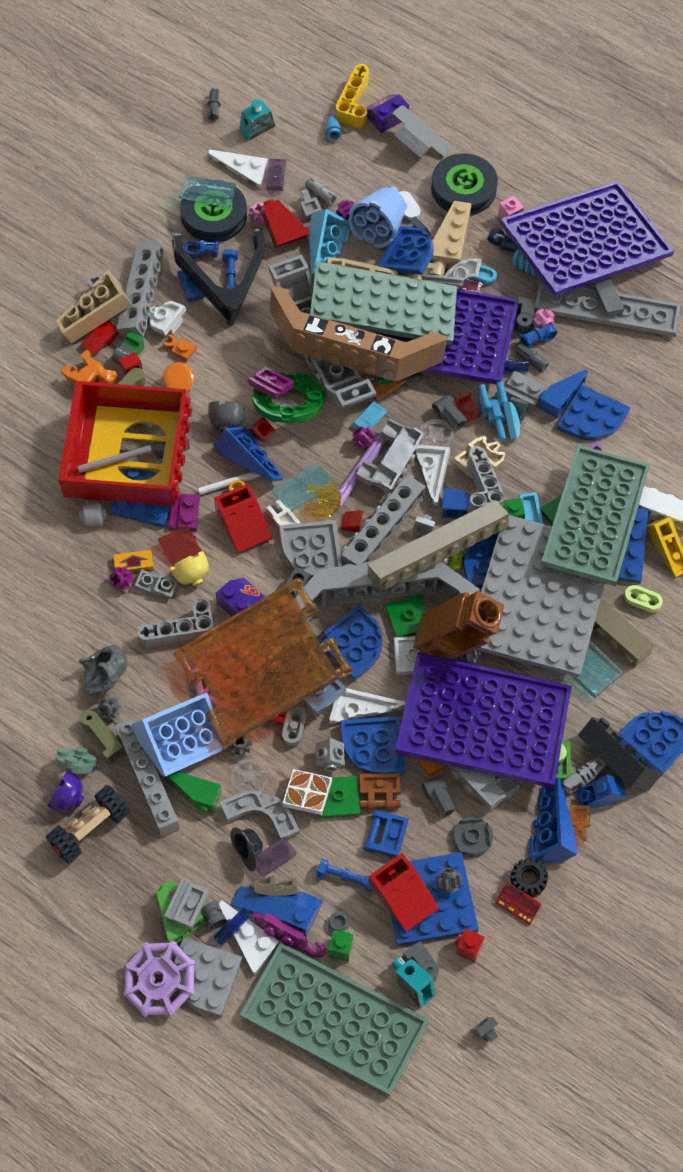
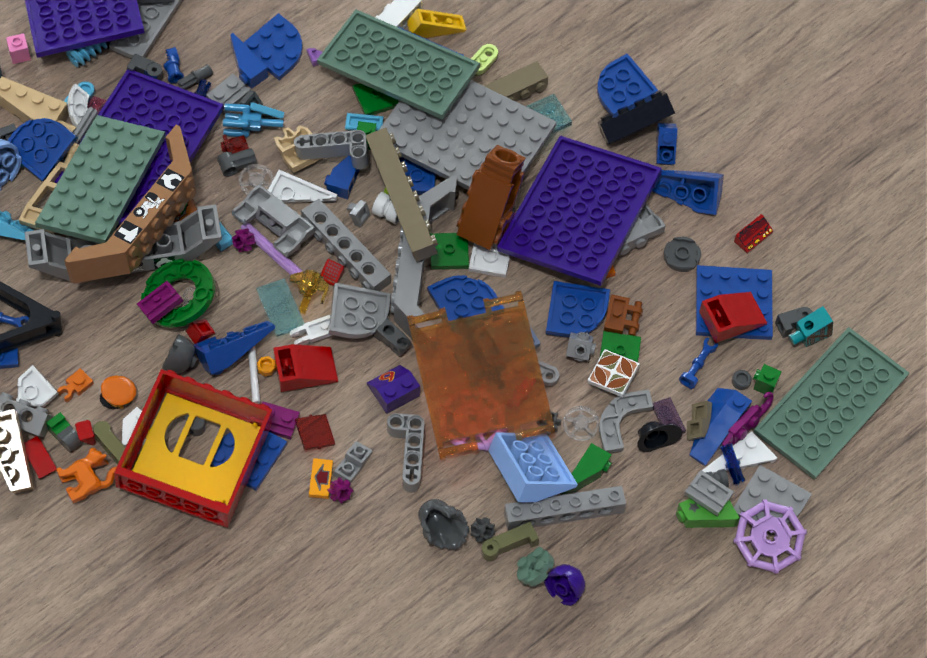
camera: 80 degrees left, 0 degrees up
(92, 514) = (256, 504): light grey head -> none
(109, 806) = (604, 568): black plate -> none
(114, 459) = (203, 462): light grey bar -> none
(191, 569) = (348, 423): light yellow cylinder -> none
(359, 704) = (535, 307): white wing -> none
(392, 836) = (669, 316): blue plate -> none
(437, 791) = (634, 270): dark grey piece -> none
(449, 880) = (728, 275): dark grey gear -> none
(469, 944) = (787, 278): red brick -> none
(485, 1029) = (862, 286): dark grey tile -> none
(502, 240) = (51, 64): dark blue connector -> none
(529, 865) = (731, 209): black tyre -> none
(542, 318) = (157, 54): bright pink gear -> none
(580, 819) = (686, 163): clear orange plate -> none
(584, 775) = (644, 148): light grey hinge -> none

